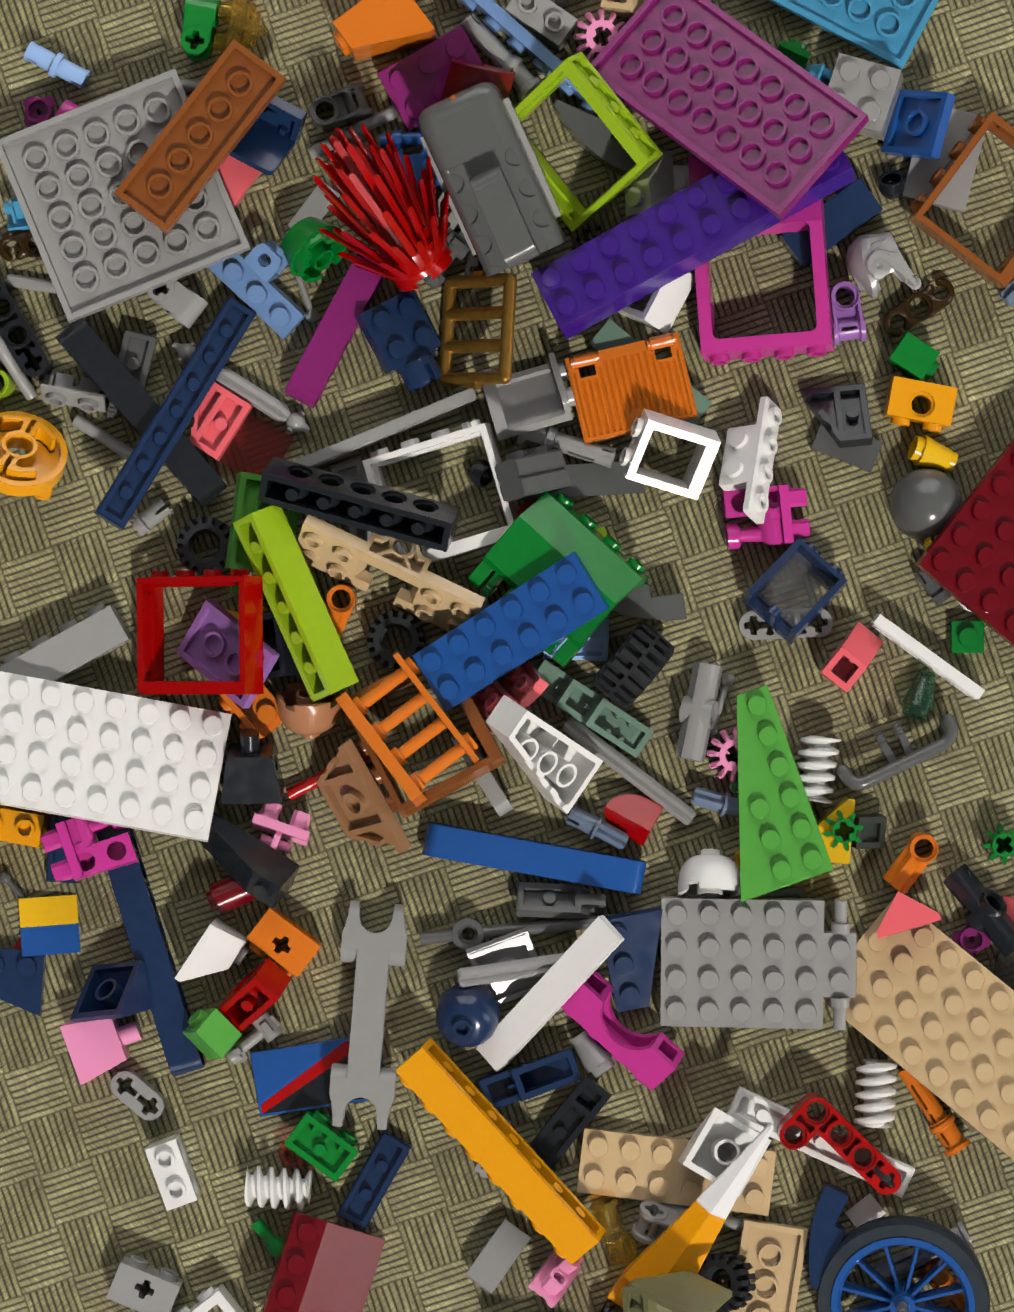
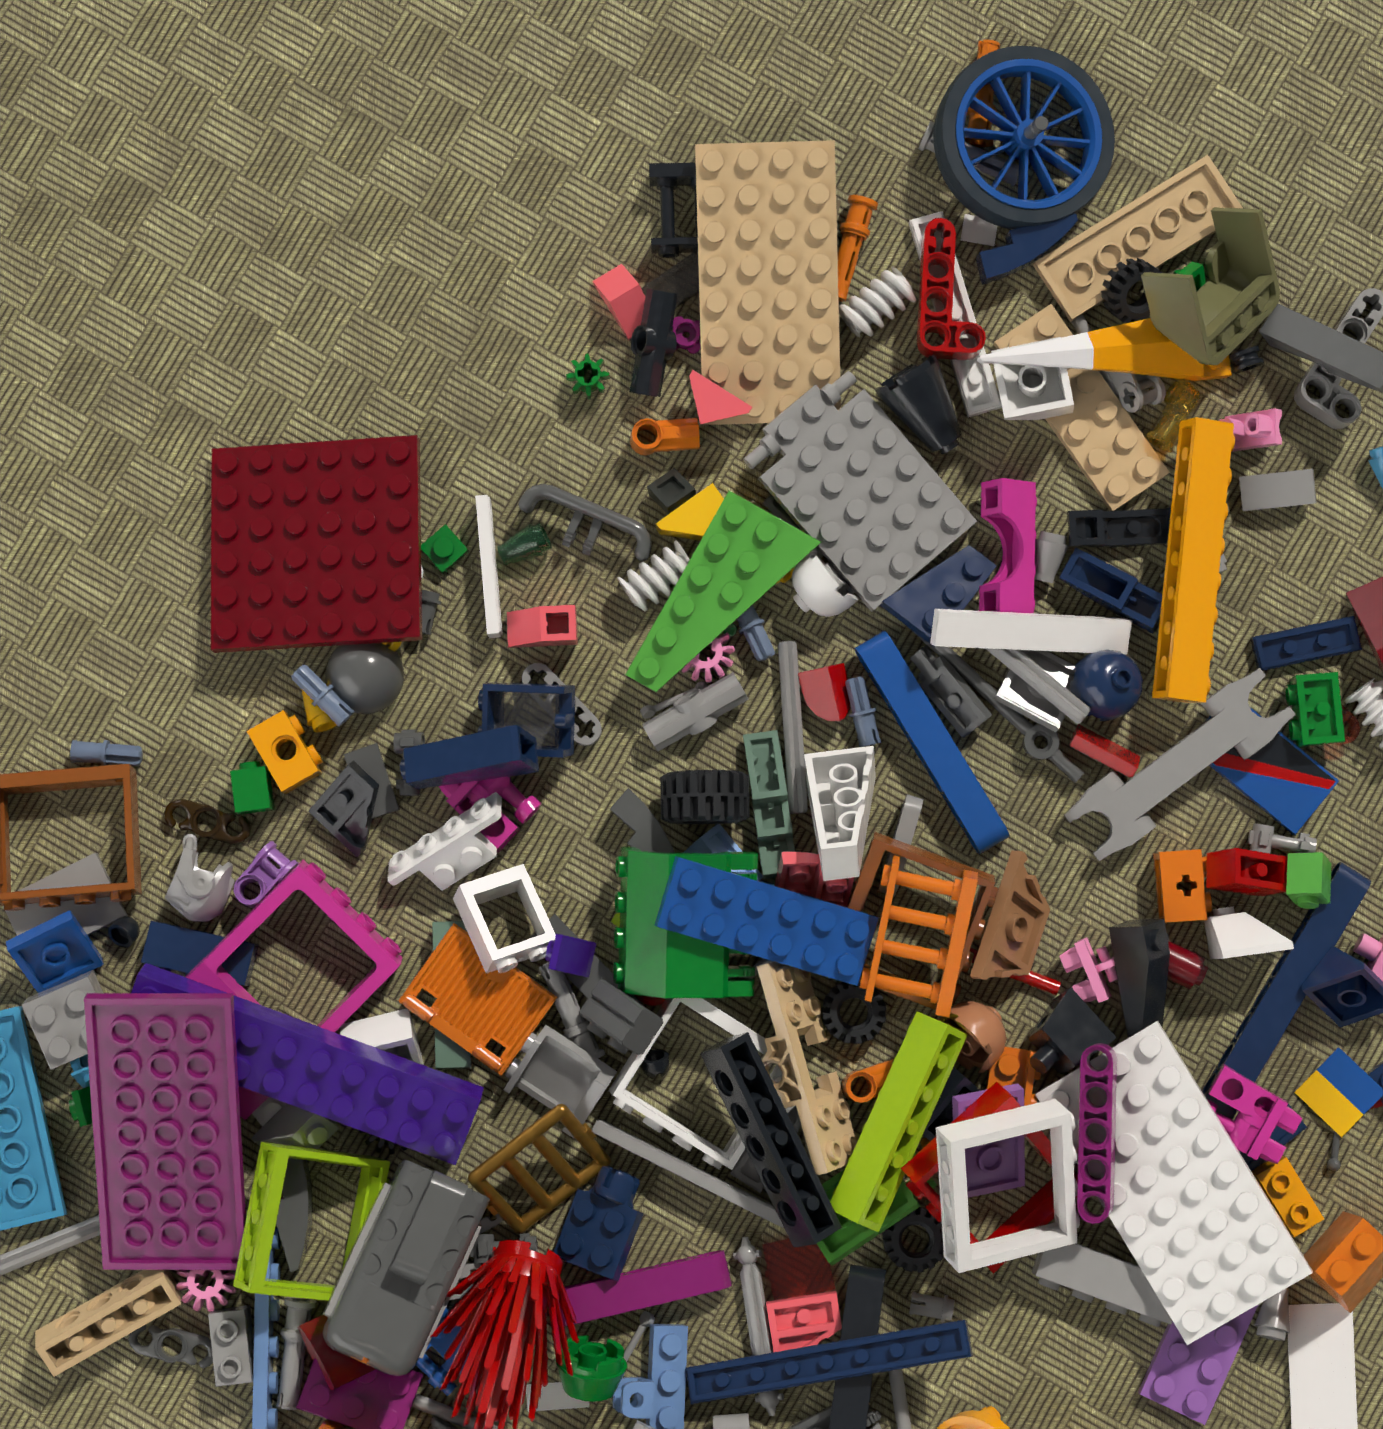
camera: 140 degrees left, 5 degrees down
(164, 716) = (1088, 1148): none -> magenta beam
(236, 658) = (951, 1147): none -> white window
(422, 972) = (1105, 751): none -> red tile
(605, 477) = (570, 955): none -> dark purple slope
(775, 1061) = (923, 404): none -> black cone
(802, 526) = (471, 758): none -> dark blue slope
(849, 493) = (403, 740): none -> dark grey bar
(850, 835) = (688, 500): green gear -> none
(937, 462) = (322, 695): none -> sand blue axle

